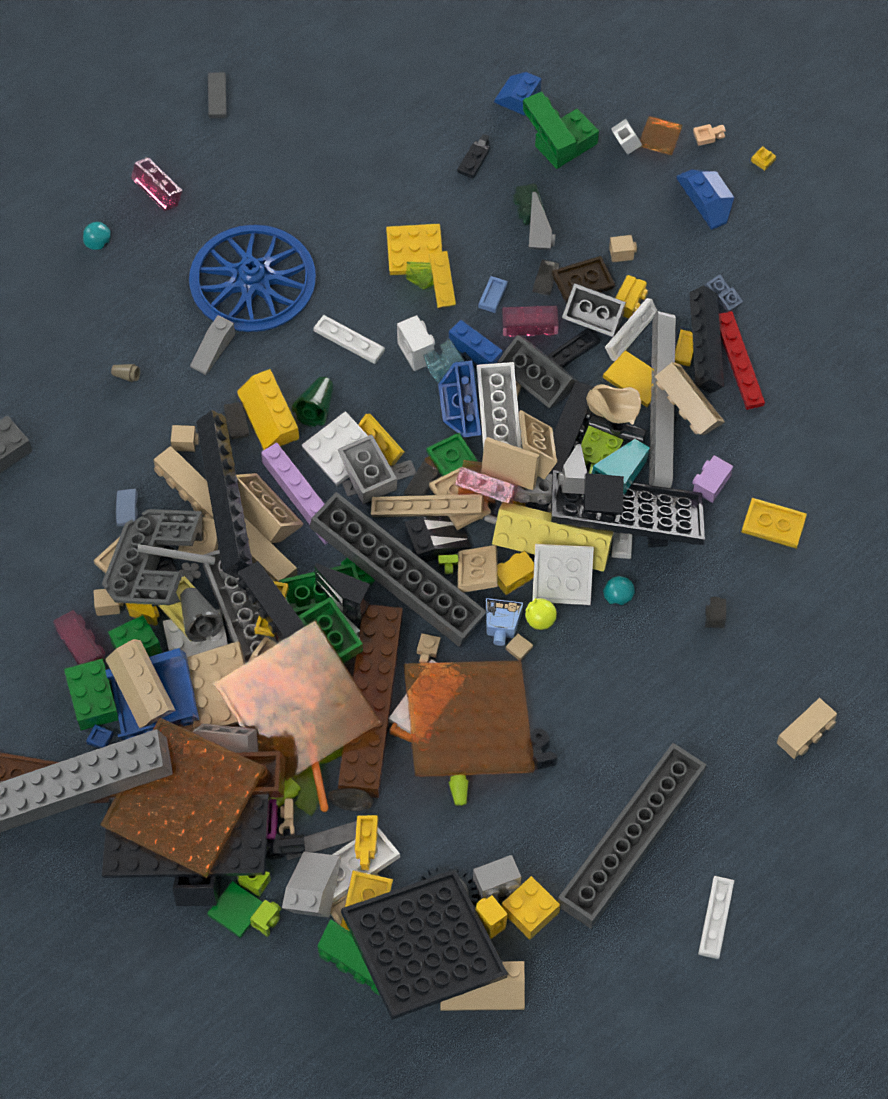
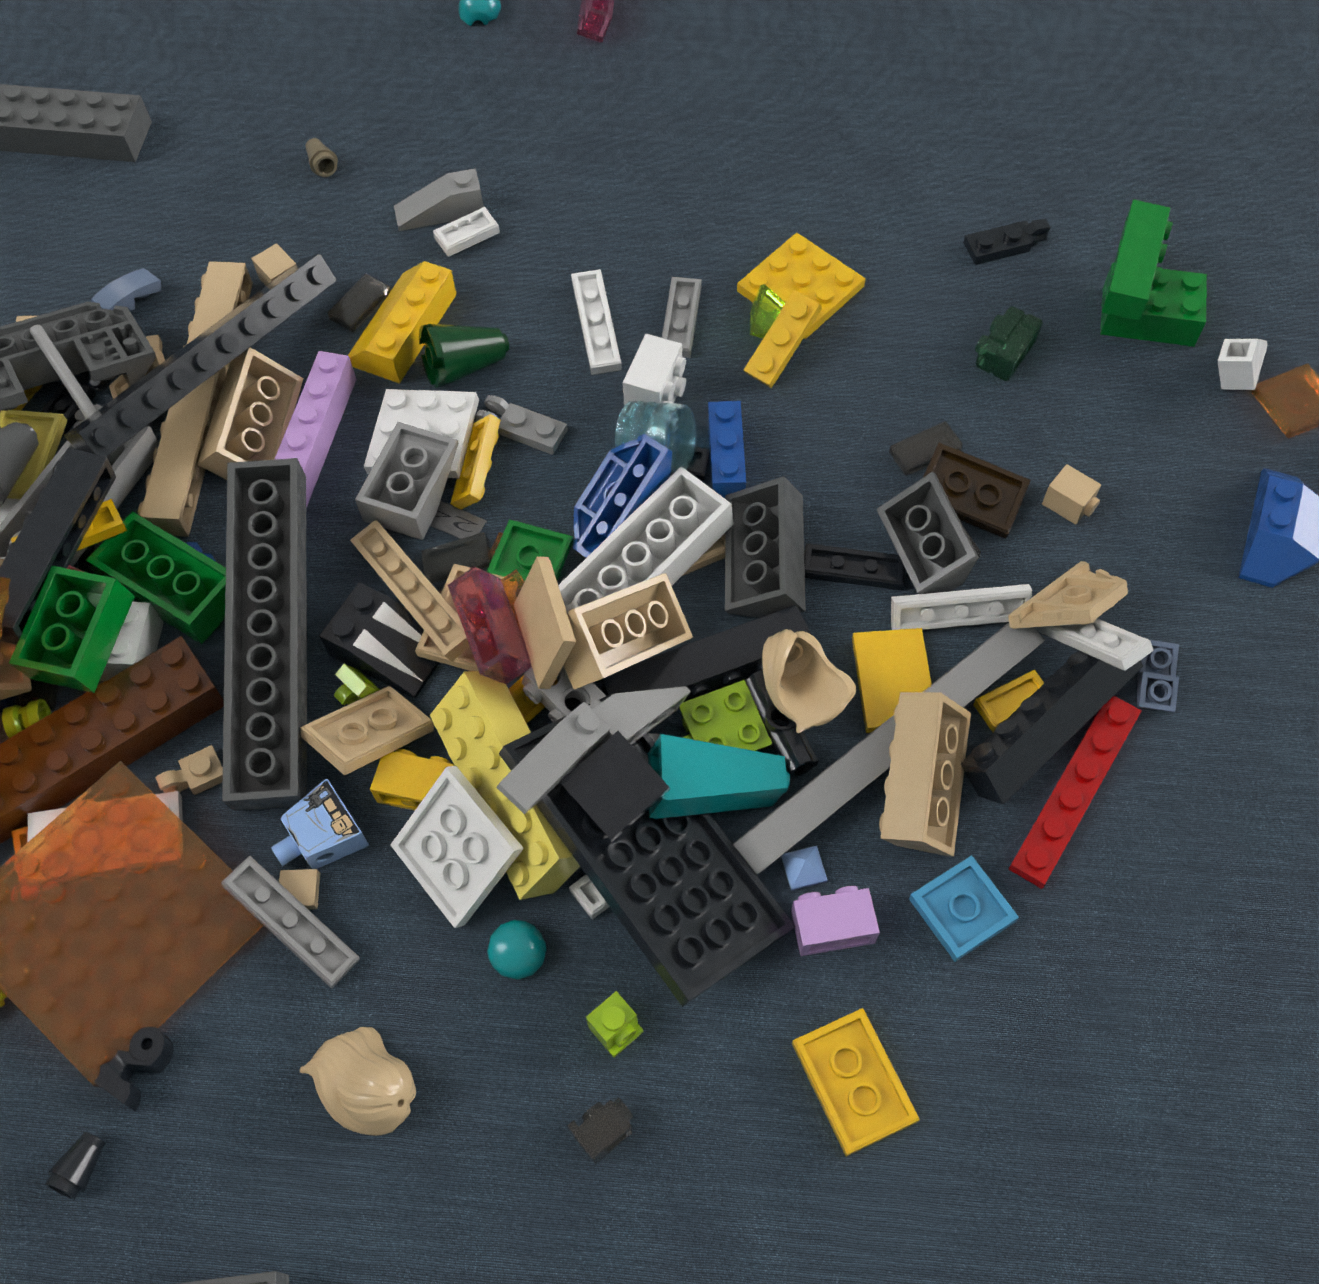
camera: 50 degrees right, 0 degrees up
(242, 348) = (466, 231): none -> white plate
(253, 281) = (576, 168): blue wheel -> none
(347, 592) = (148, 592): black slope -> none
(377, 408) = (525, 425): none -> light grey hinge
(381, 306) = (682, 312): none -> light grey tile
(493, 294) = (832, 413): medium blue tile -> none
(516, 89) = (1172, 196): blue slope -> none
(530, 321) = (835, 481): clear pink brick -> none
(533, 656) = (290, 921): none -> light grey tile
(540, 230) = (979, 368): light grey slope -> none
(540, 614) = (369, 872): neon yellow helmet -> none
(563, 795) = (76, 1166): none -> black cone
(574, 501) = (554, 757): none -> light grey slope
(627, 676) = (362, 1082): none -> tan piece
(632, 293) = (1011, 562): yellow brick -> none
(670, 289) = (1071, 599): none -> tan wing
(681, 472) = (804, 868): none -> light blue slope
(681, 579) = (614, 1024): none -> lime brick
(692, 297) = (1102, 642): none -> white tile
(748, 435) = (963, 908): none -> dark azure plate

